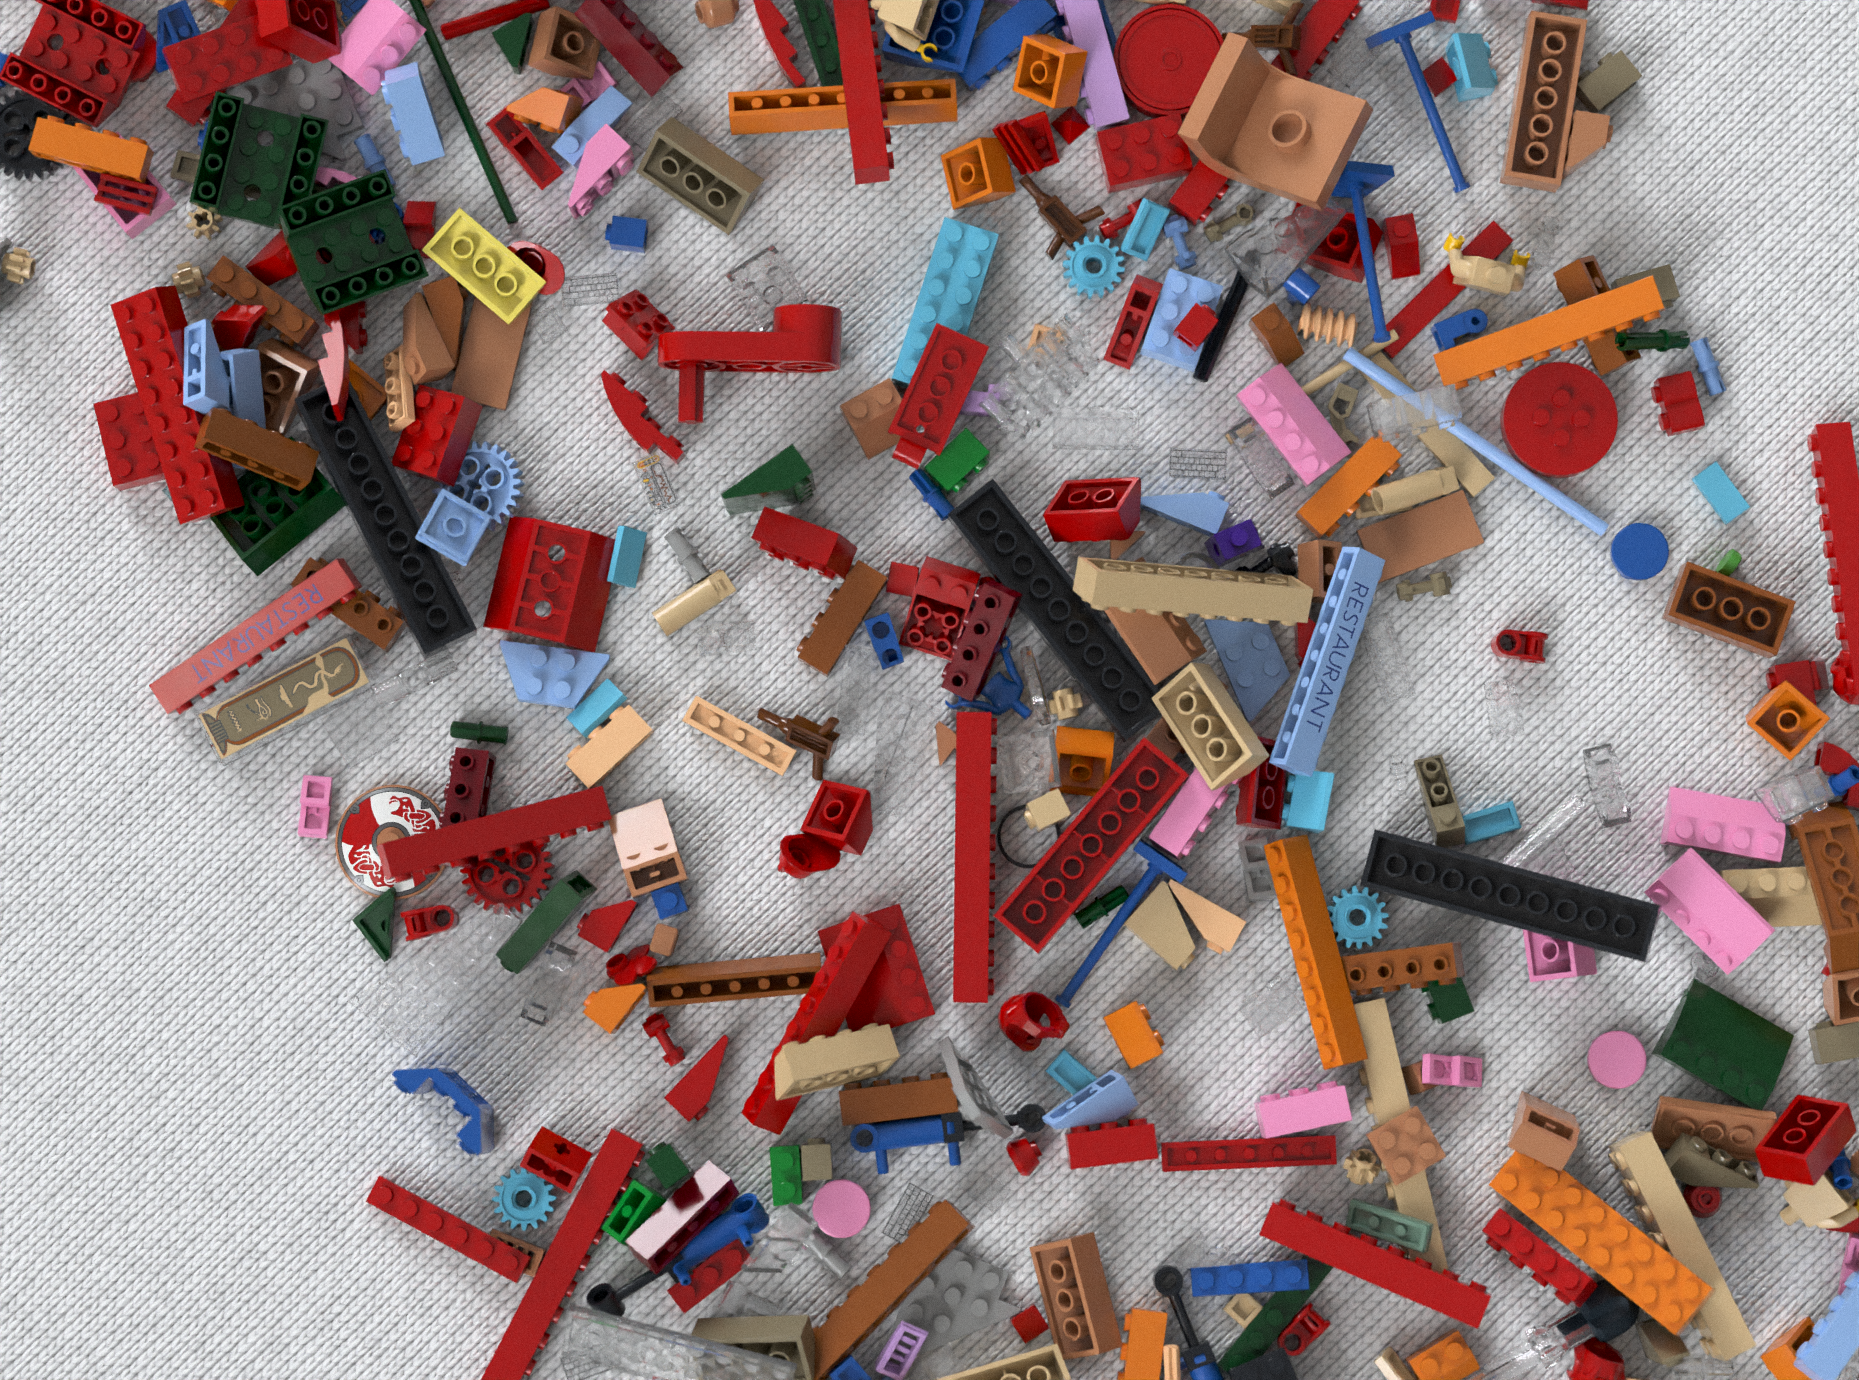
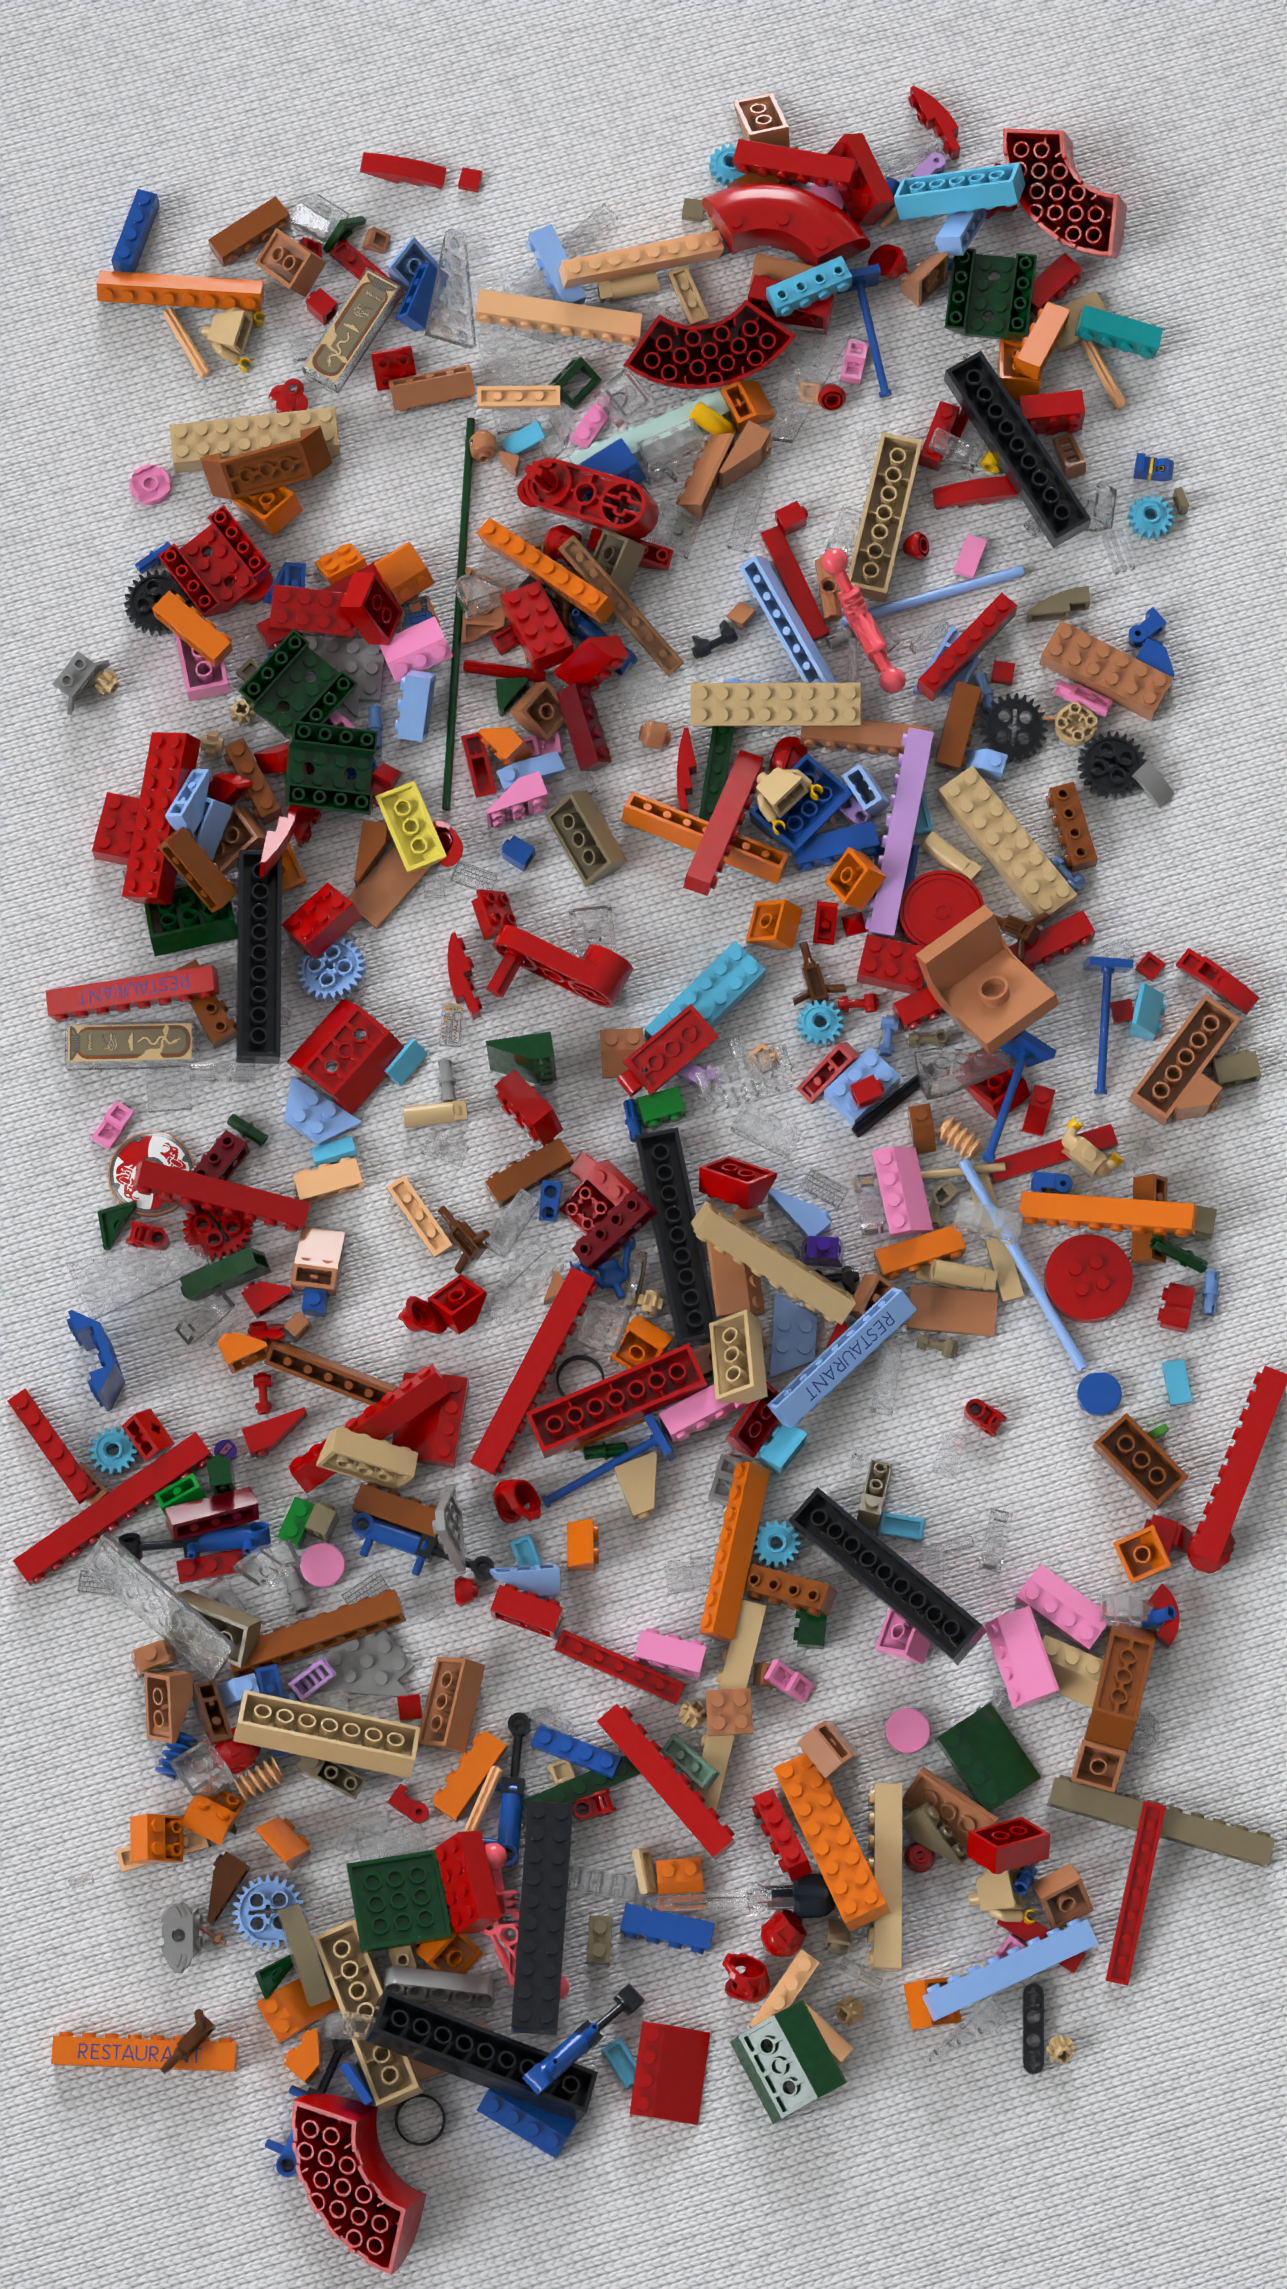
camera: 30 degrees right, 10 degrees down
(102, 188) = (187, 656): red tile -> none
(399, 391) = (312, 878): light nougat tile -> none
(423, 347) = (342, 862): nougat slope -> none
(453, 527) = (300, 983): light blue tile -> none
(655, 1130) = (226, 1448): none -> tile
(1018, 147) = (809, 919): red tile -> none
(1046, 811) = (598, 1363): tan brick -> none
(1145, 229) = (867, 1015): medium azure tile -> none
(1211, 921) = (676, 1499): light nougat slope -> none
(1300, 288) = (952, 1102): blue piece -> none

